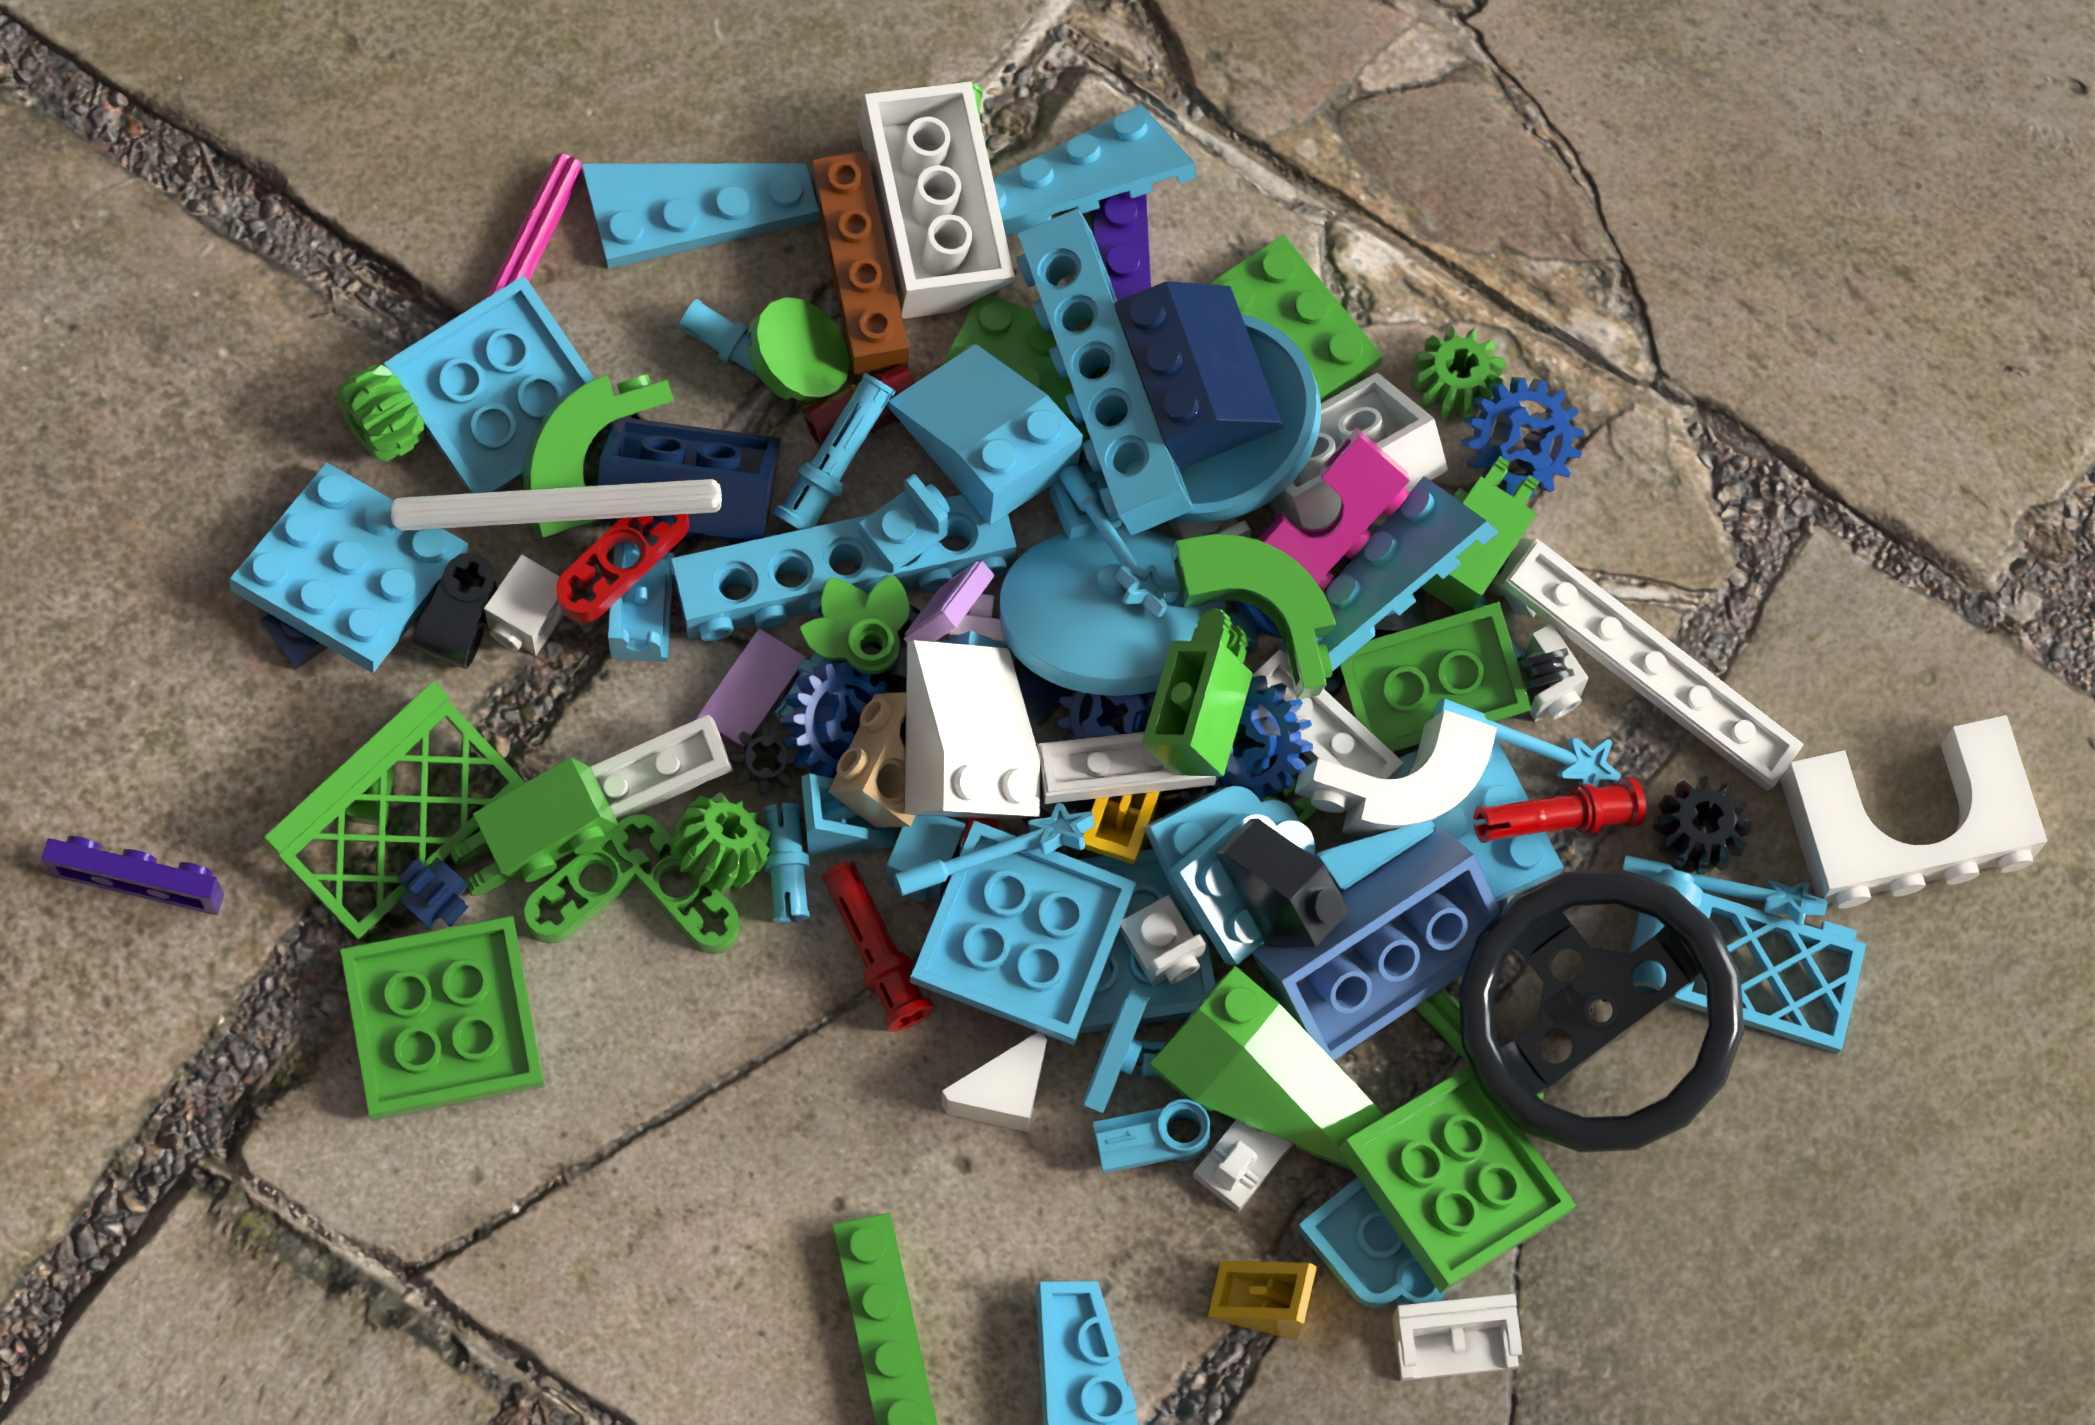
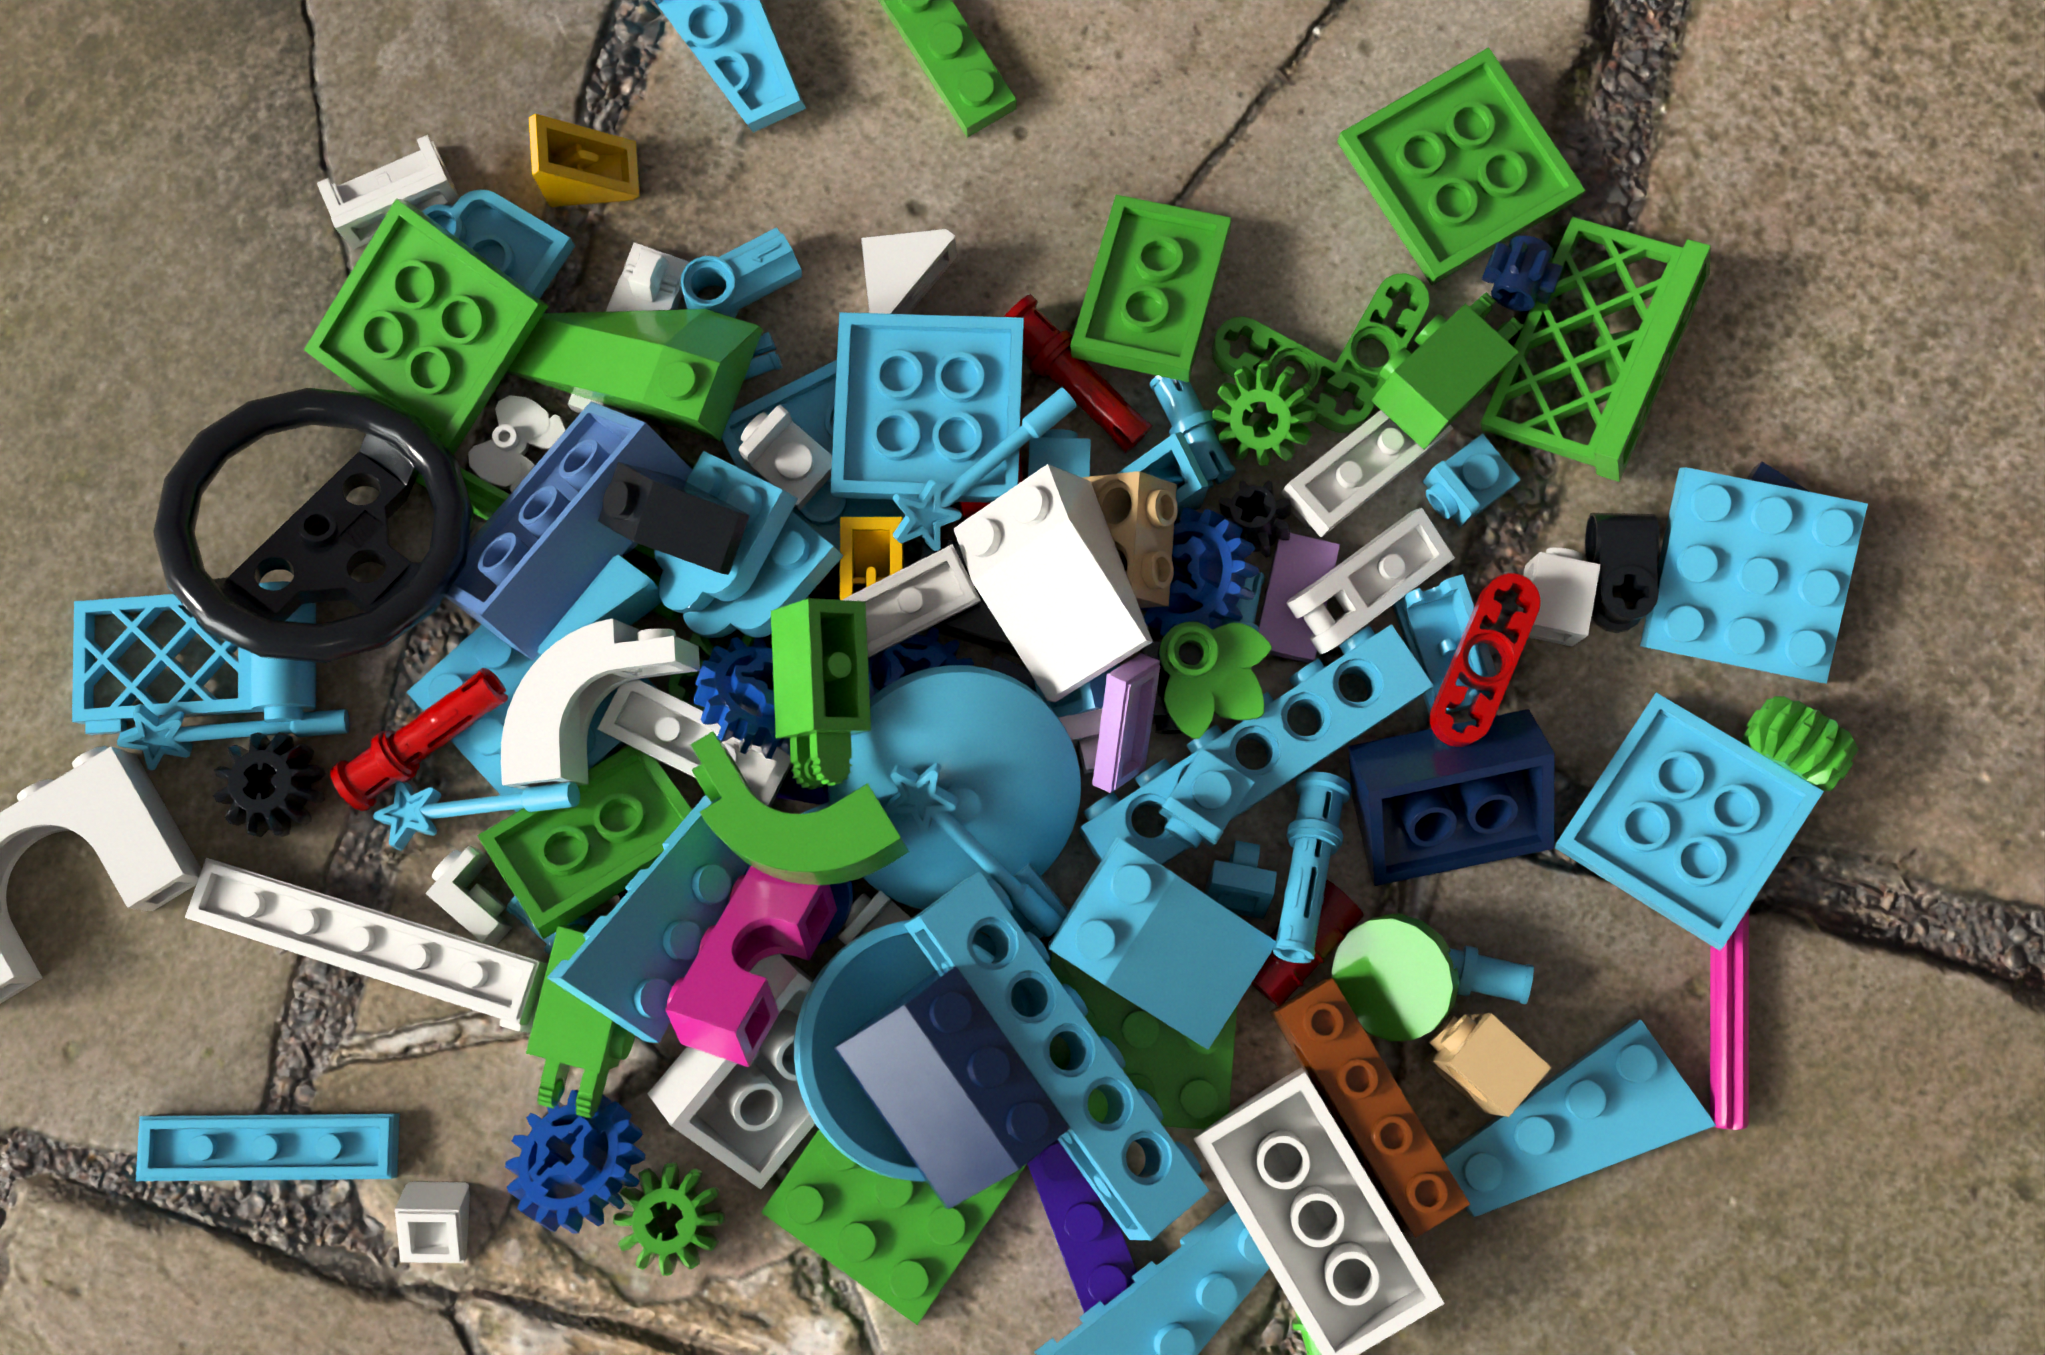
camera: 165 degrees right, 10 degrees up
(133, 874) = (1812, 197): dark purple plate -> none
(556, 504) = (1573, 683): white axle -> none
(557, 734) = (1469, 481): none -> medium azure bracket
(567, 429) = (1590, 815): bright green arch -> none
(684, 672) = (1372, 579): none -> white plate
(754, 256) = (1485, 1062): none -> tan brick
(777, 992) = (1151, 288): none -> bright green plate
(894, 470) = (1240, 883): none -> medium azure tile
(1119, 1051) = (796, 336): medium azure plate -> none
(1395, 1075) = (520, 425): none -> white piece
(1546, 668) = (469, 876): black bush -> none
(1653, 443) = (433, 1222): none -> white slope
(1777, 543) = (267, 1147): none -> medium azure tile

